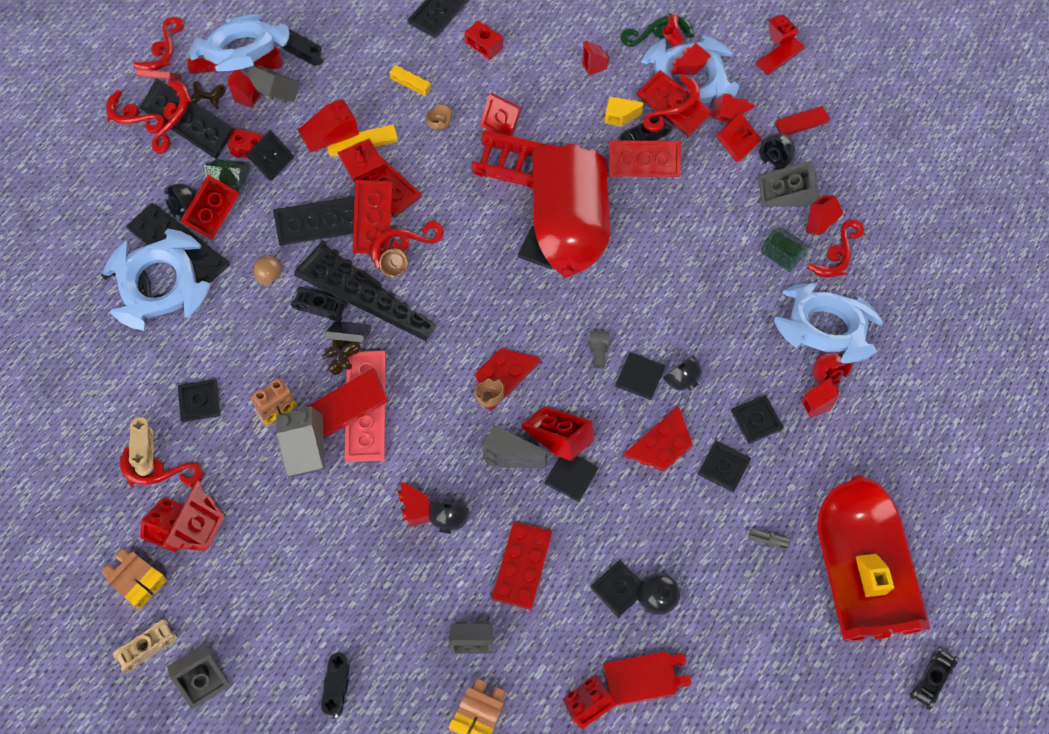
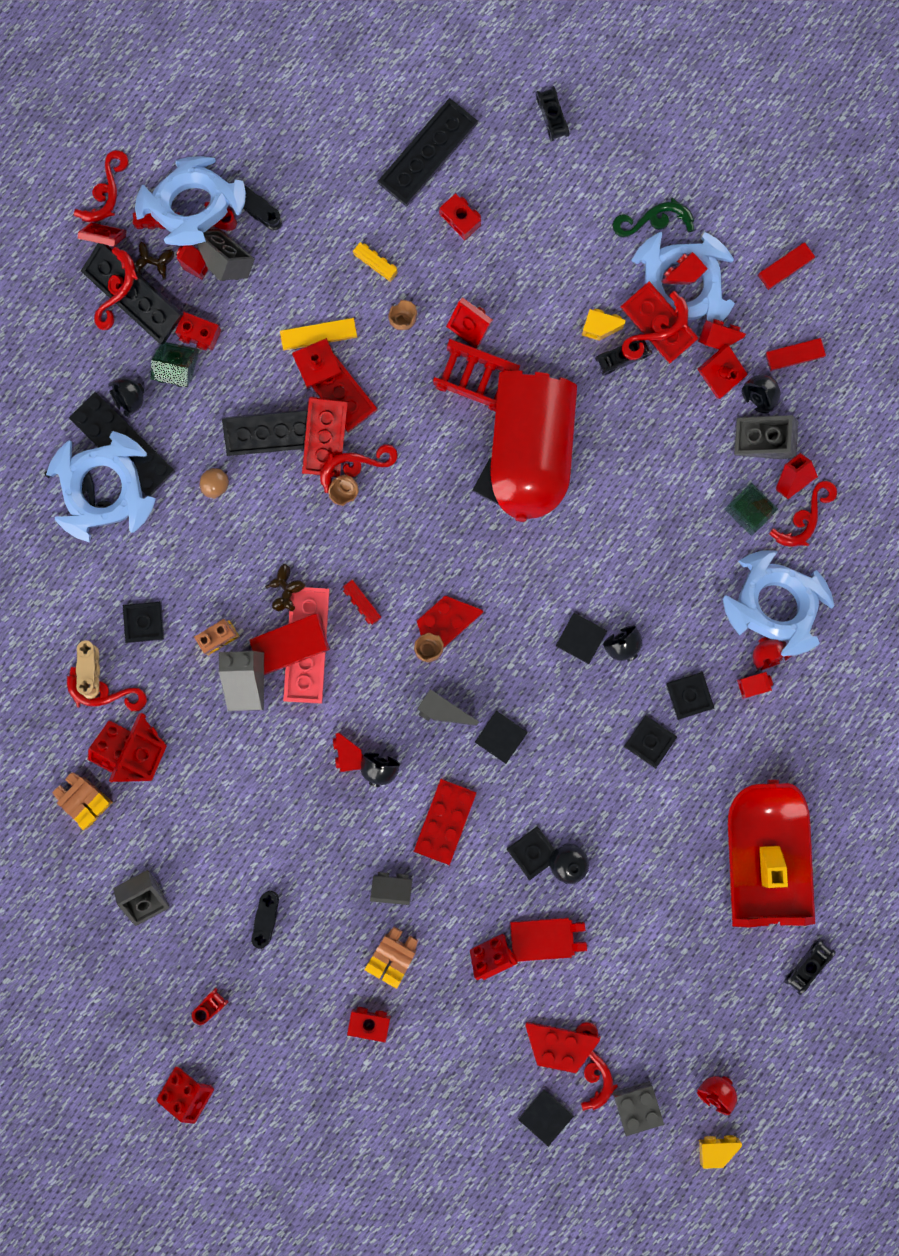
camera: 10 degrees right, 20 degrees up
(131, 113) = (72, 284): red plant -> none
(131, 655) = (103, 859): tan piece -> none
(209, 207) = (156, 408): red slope -> none
(270, 155) = (220, 348): black tile -> none
(307, 299) = (252, 524): black piece -> none
(329, 126) = (283, 317): red slope -> none
(340, 278) = (292, 506): black wing -> none
(348, 332) = (293, 565): black tile -> none
(419, 362) = (362, 602): none -> red piece
(560, 432) = (493, 694): red slope -> none
(594, 58) = (580, 255): red slope -> none
(599, 343) = (544, 600): dark grey pin -> none
(644, 158) = (618, 389): red plate -> none
(663, 443) = (594, 712): red wing -> none
(672, 31) = (670, 228): red pin -> none
(769, 539) = (681, 820): dark grey axle -> none
(782, 29) = (792, 237): red slope -> none

